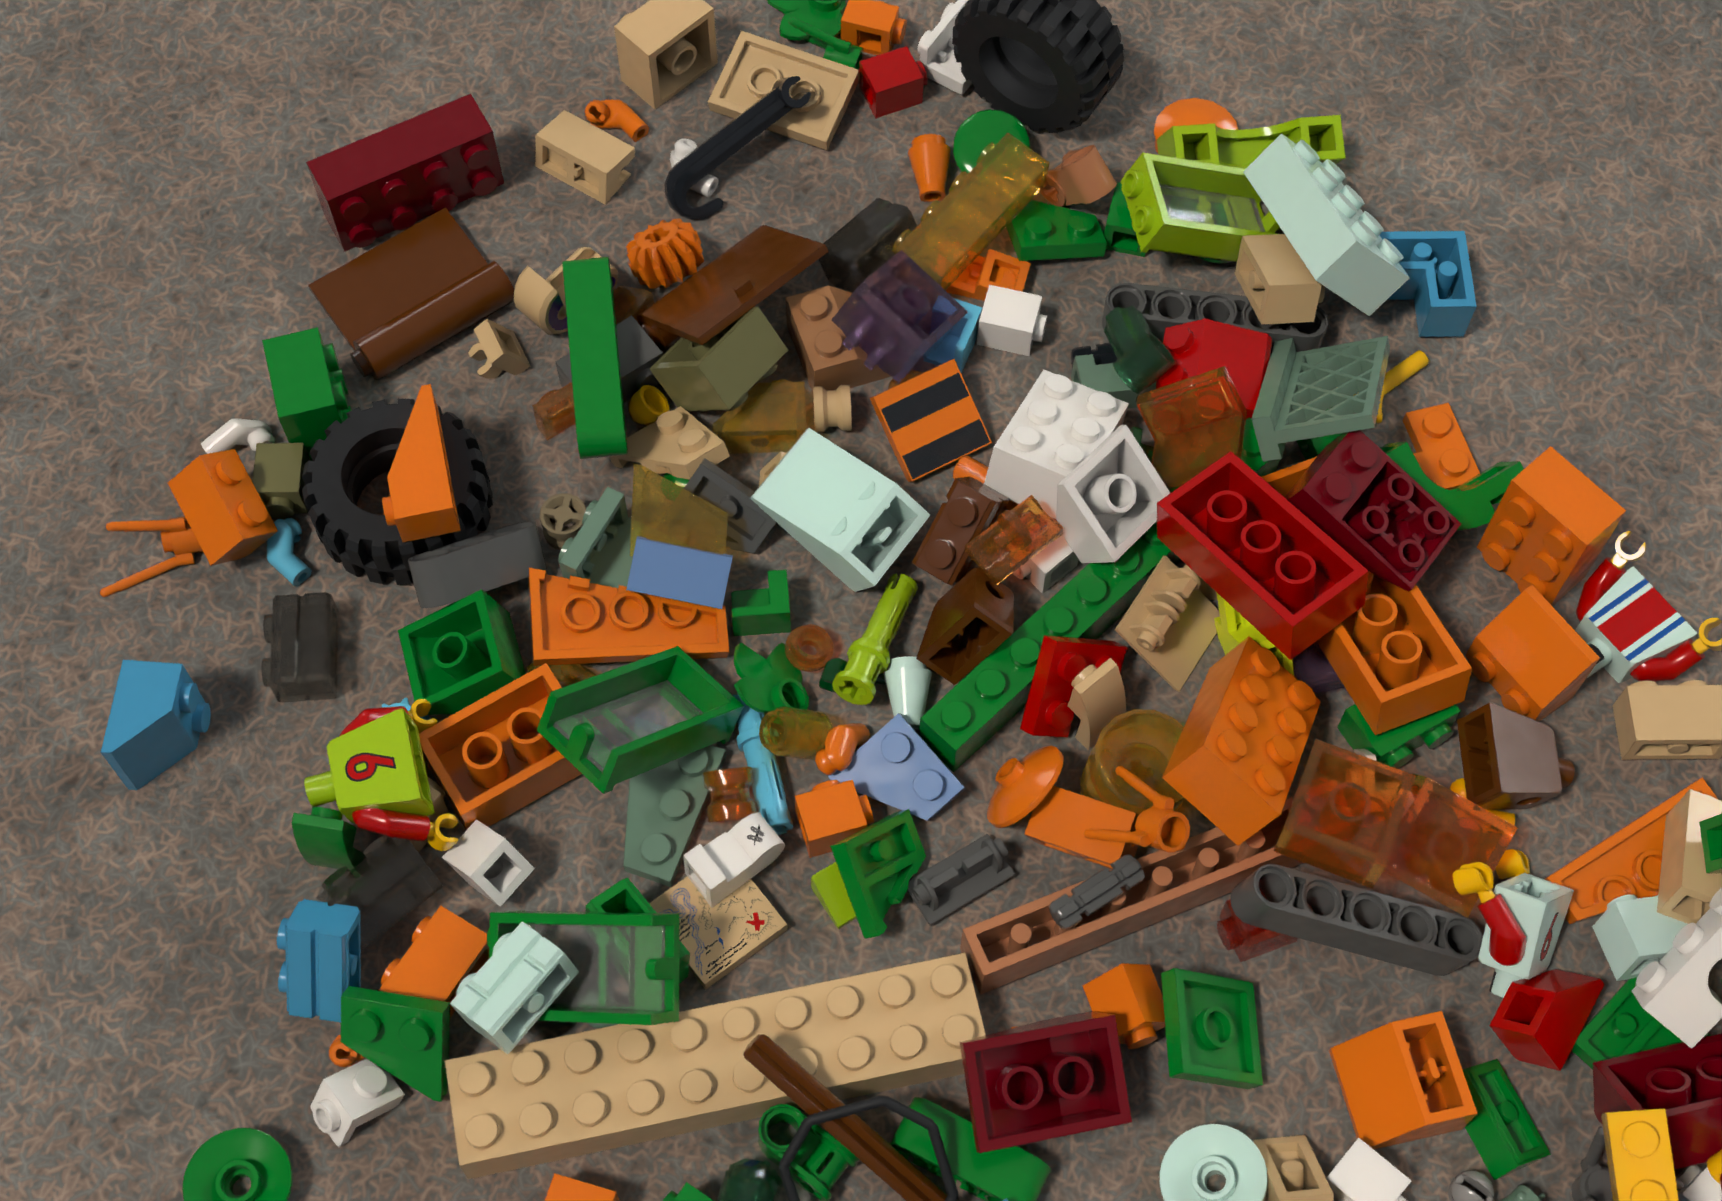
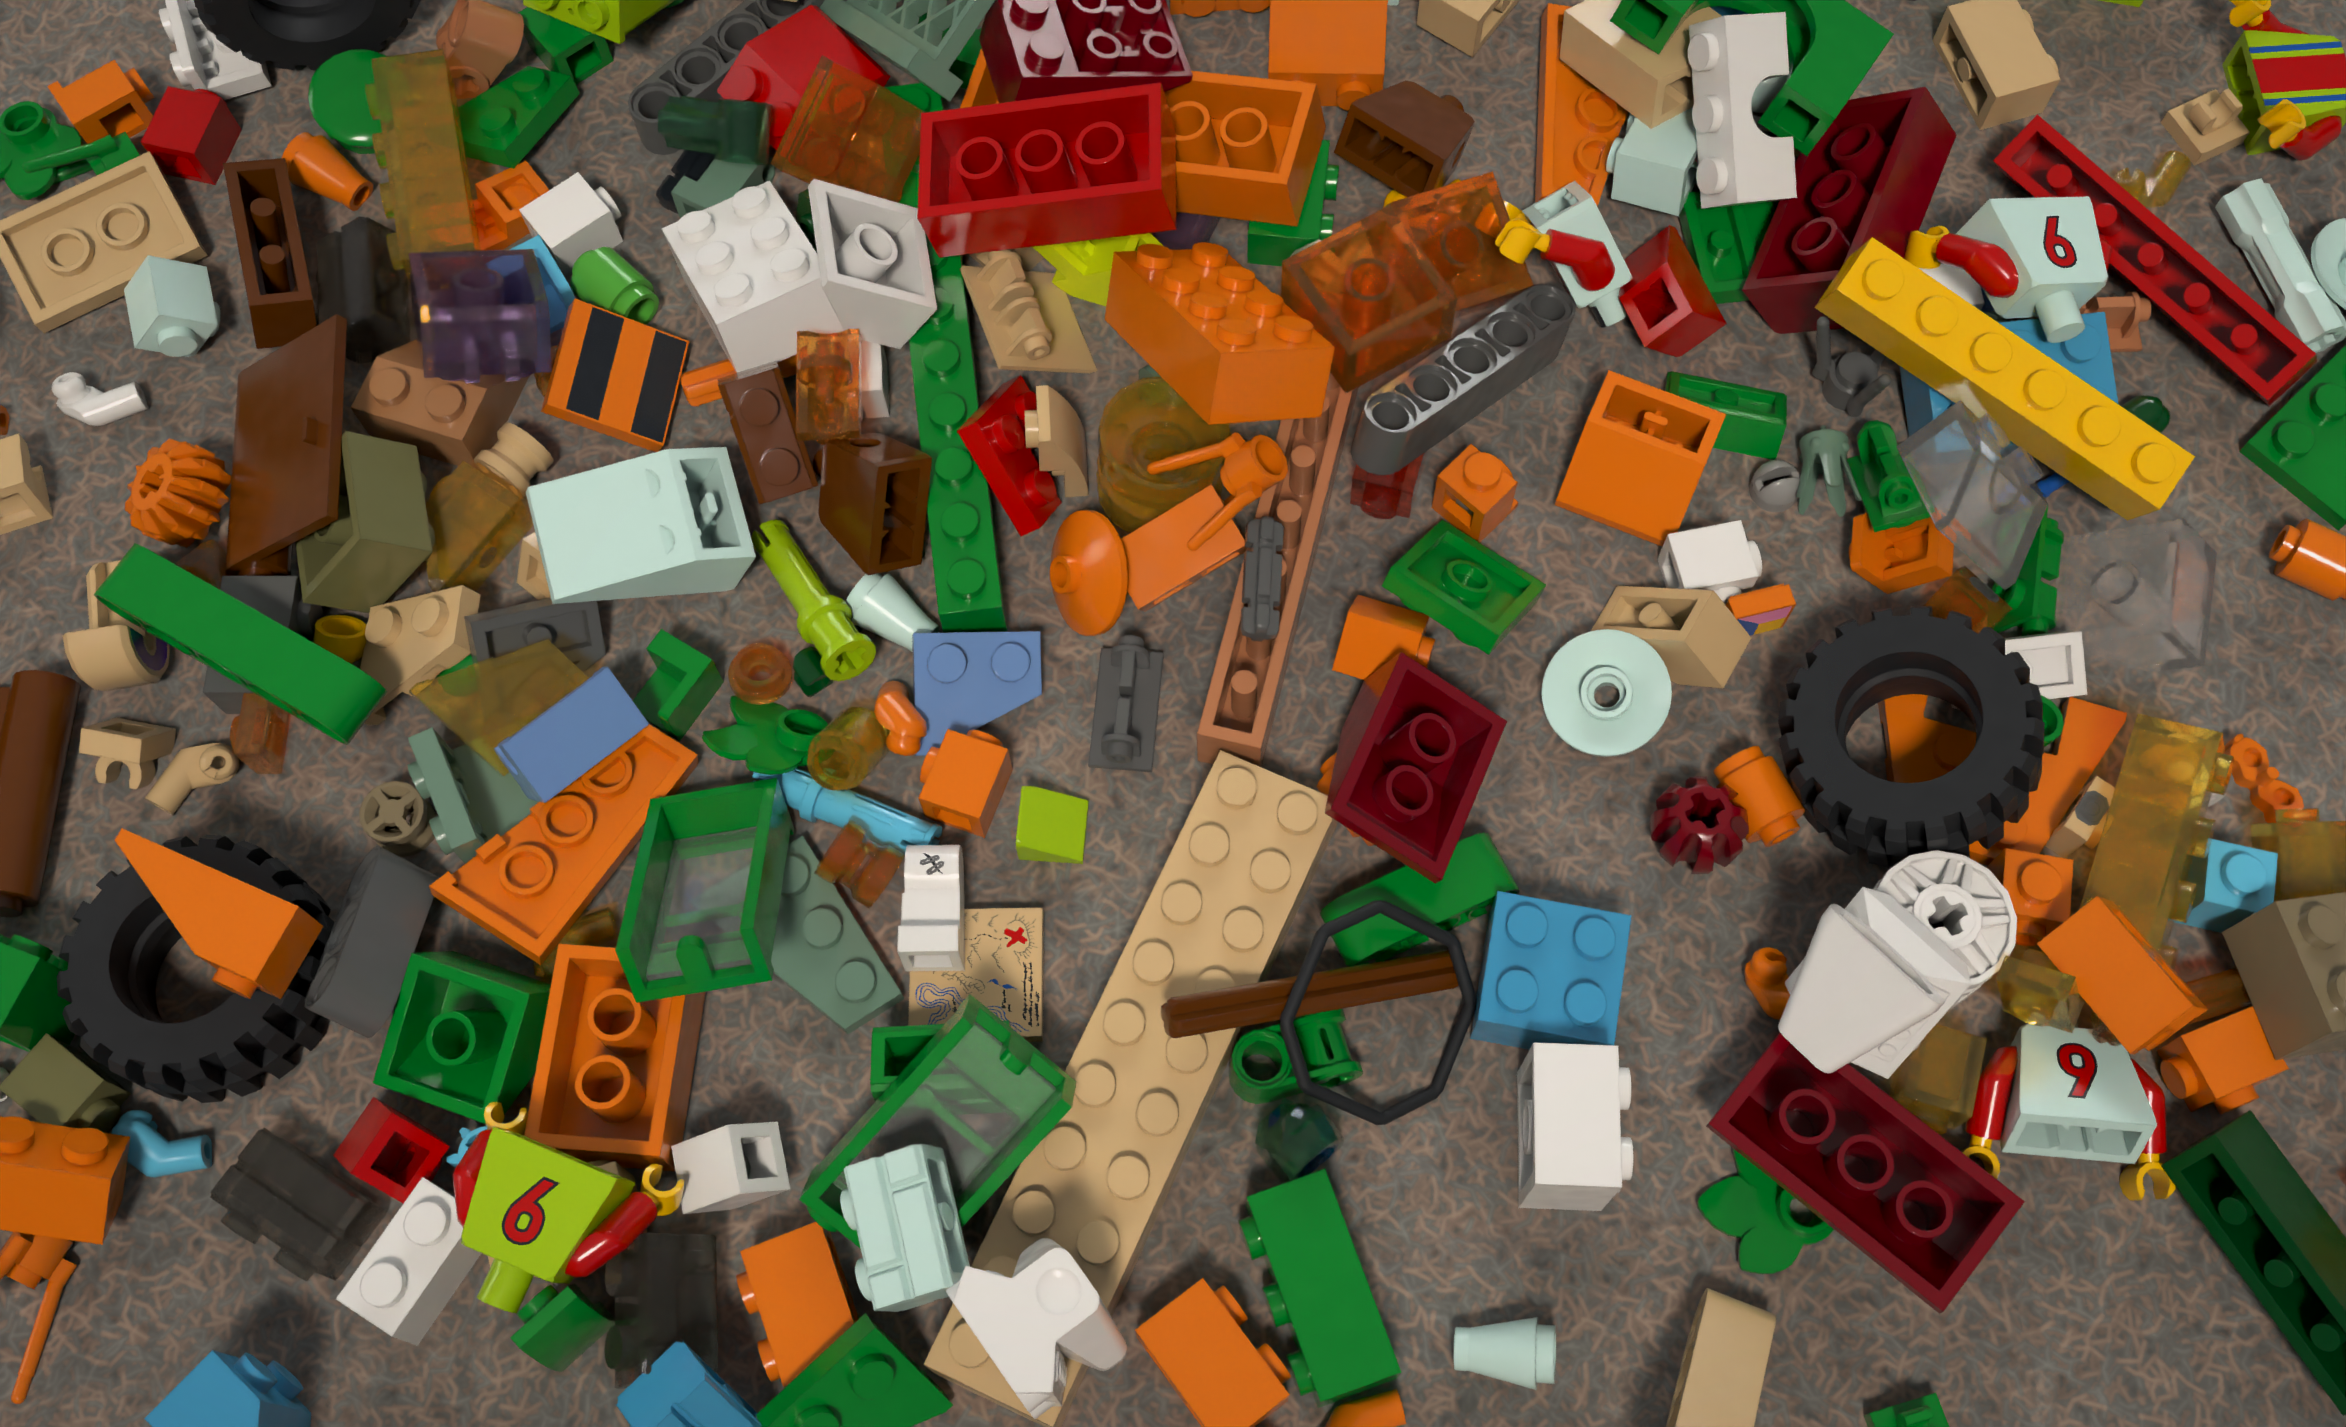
camera: 50 degrees left, 5 degrees up
(297, 734) = (412, 1266): none -> white brick
(365, 671) = (390, 1150): none -> red brick
(503, 1102) = (1037, 1321): none -> white piece
(510, 392) = (190, 770): none -> tan arm
(725, 144) = (108, 338): black piece -> none
(774, 159) = (171, 307): none -> light aqua brick
(850, 179) = (270, 251): none -> reddish brown brick
(878, 867) = (1058, 773): green wing -> none
(989, 375) = (613, 284): none -> bright green brick
(1287, 990) = (1481, 485): none -> orange brick

